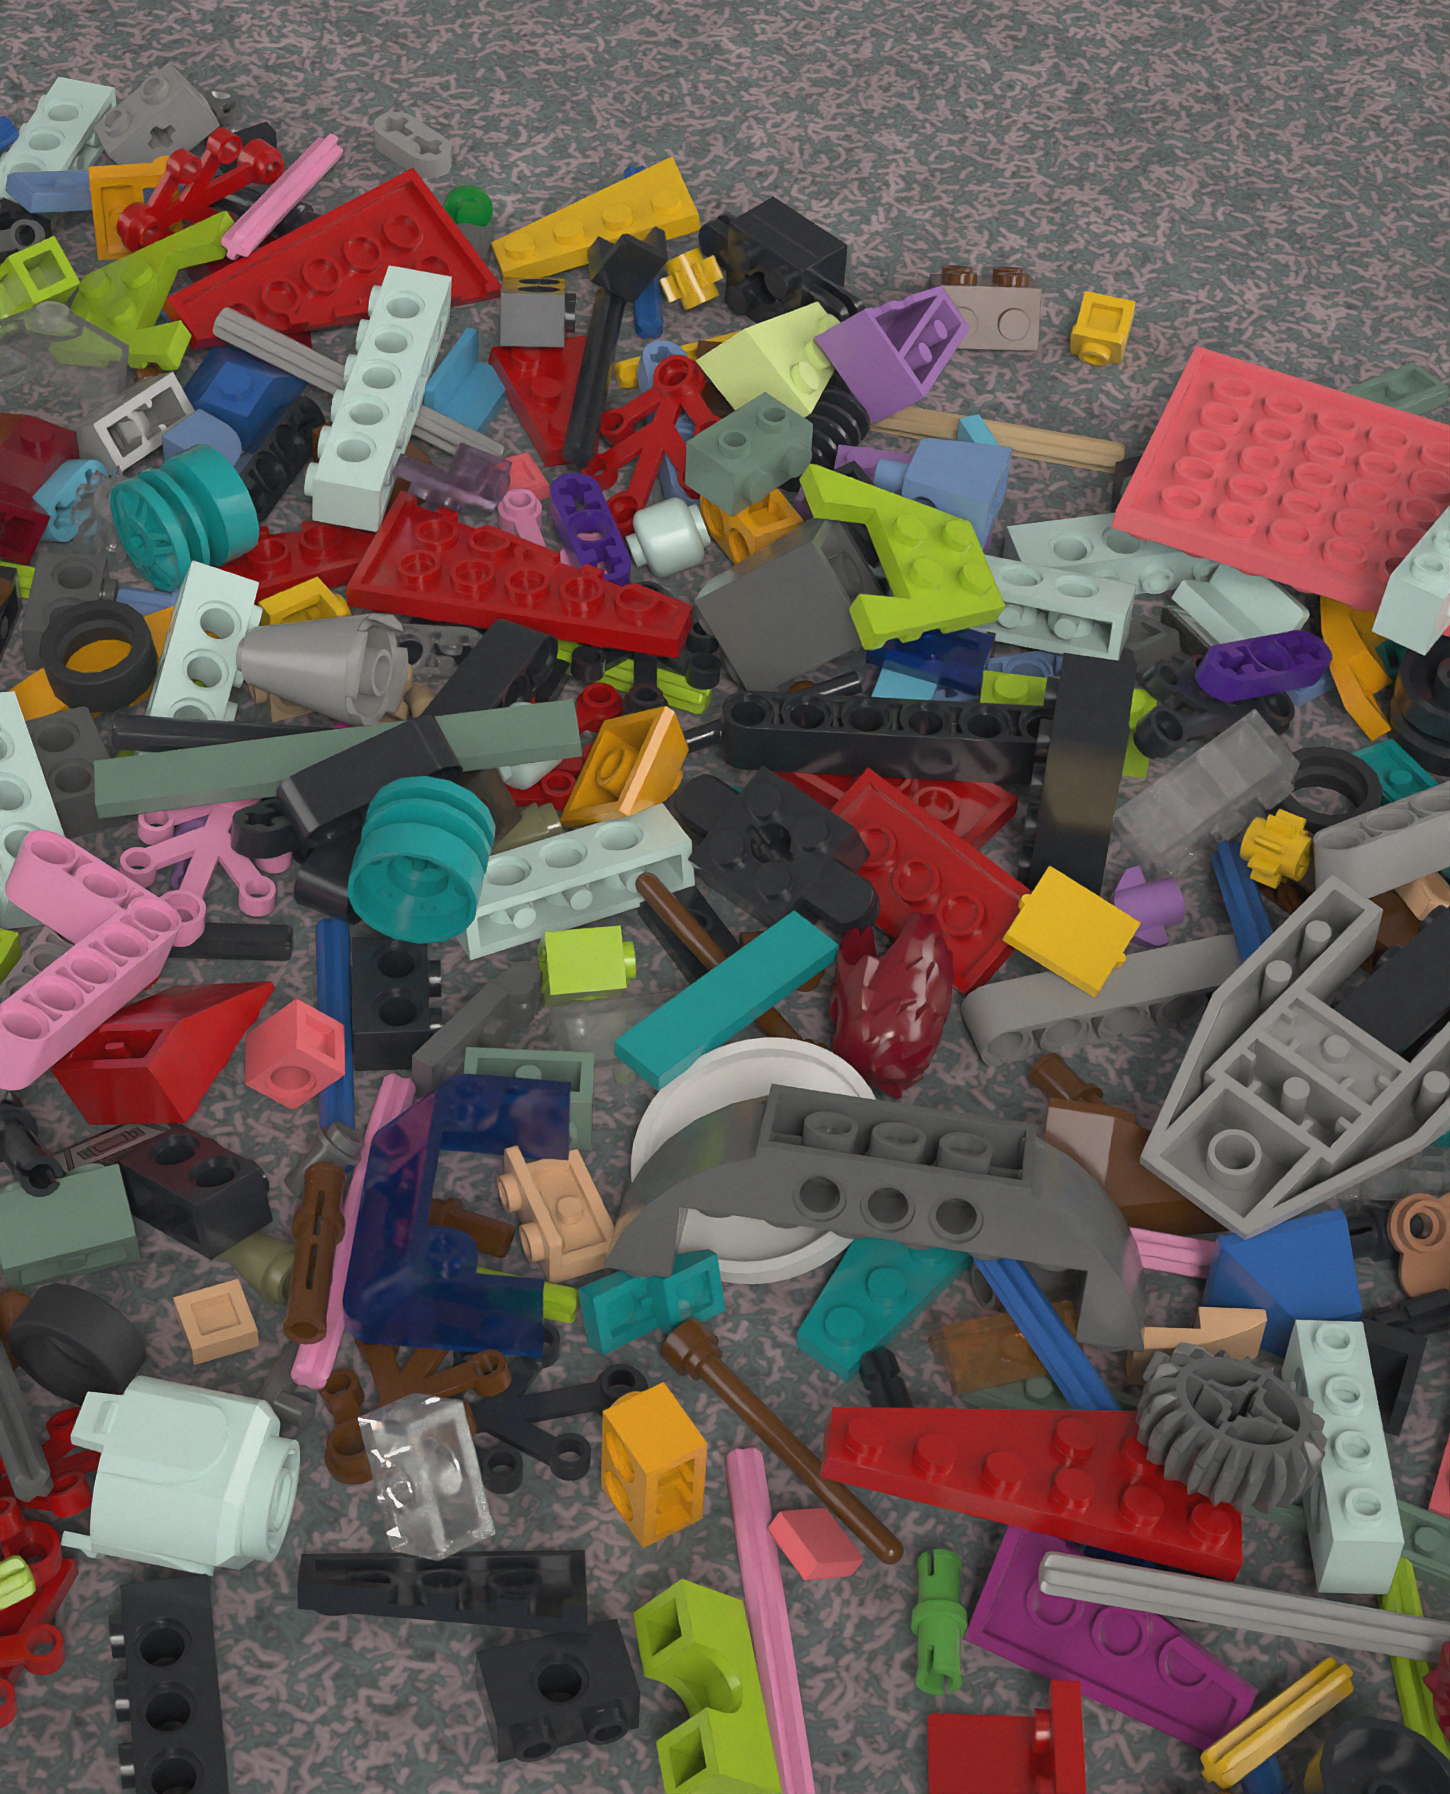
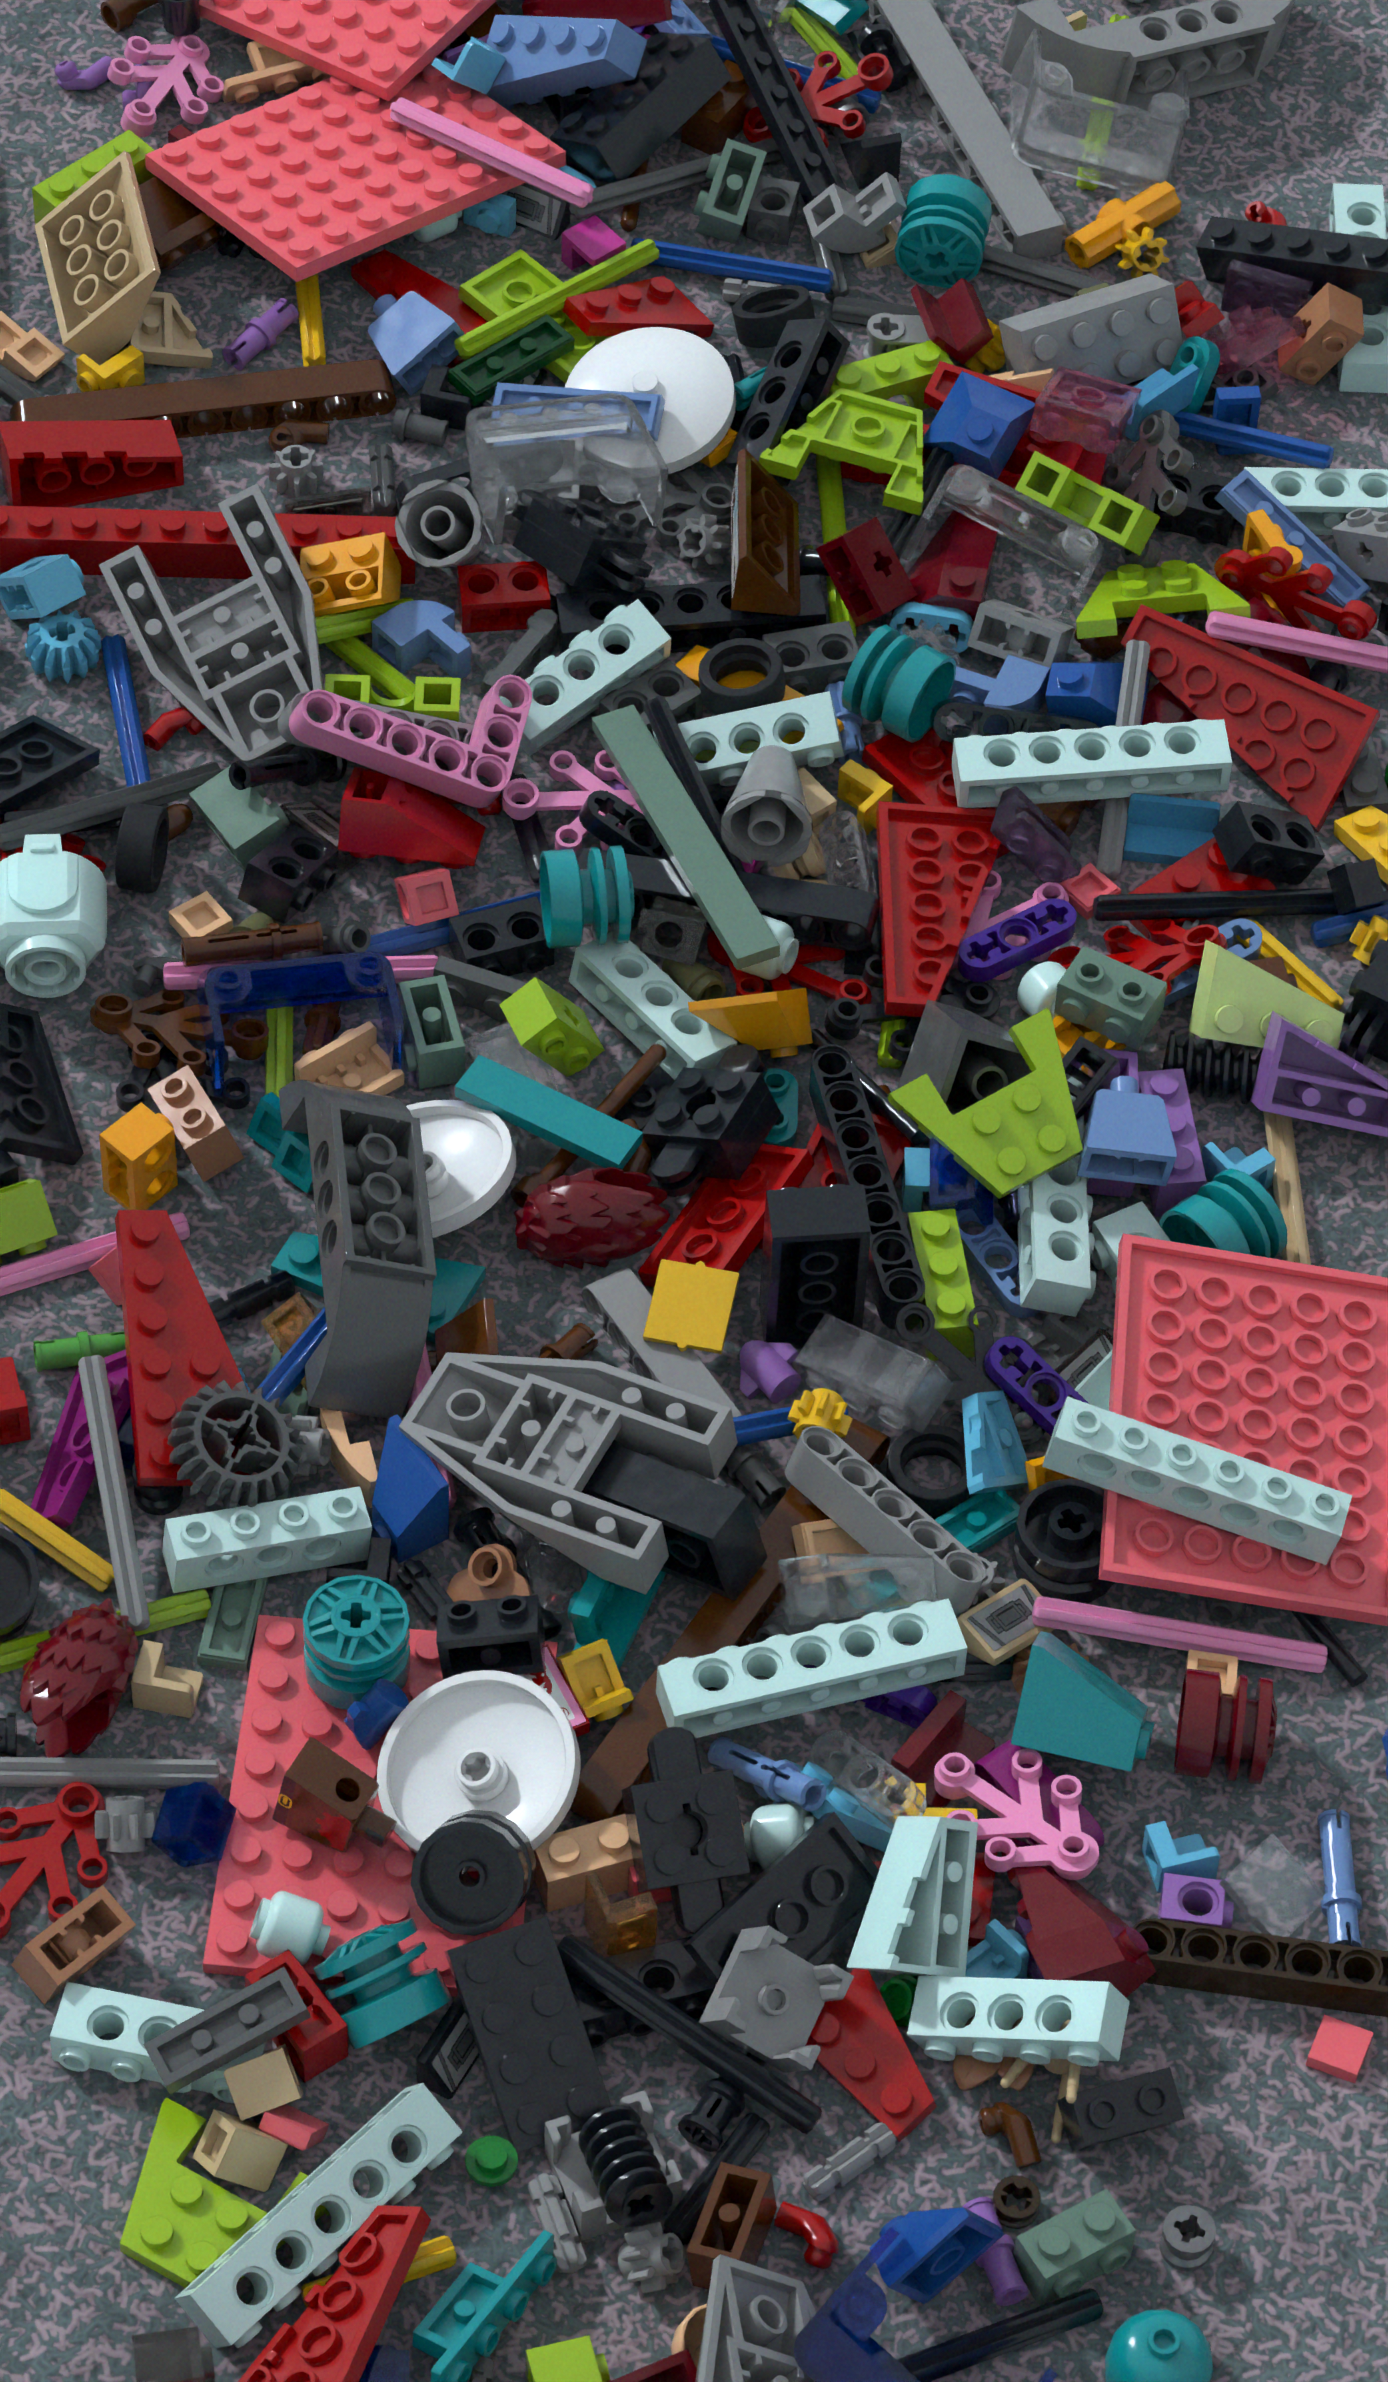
camera: 75 degrees right, 5 degrees up
(336, 792) = (649, 848): black beam -> none
(426, 1476) = (88, 1040): clear brick -> none
(597, 1371) = (196, 1123): none -> nougat brick
(694, 1352) = (258, 1178): reddish brown piece -> none
(1066, 464) = (1229, 1216): none -> teal wheel
(1324, 729) = (992, 1444): none -> medium azure wing

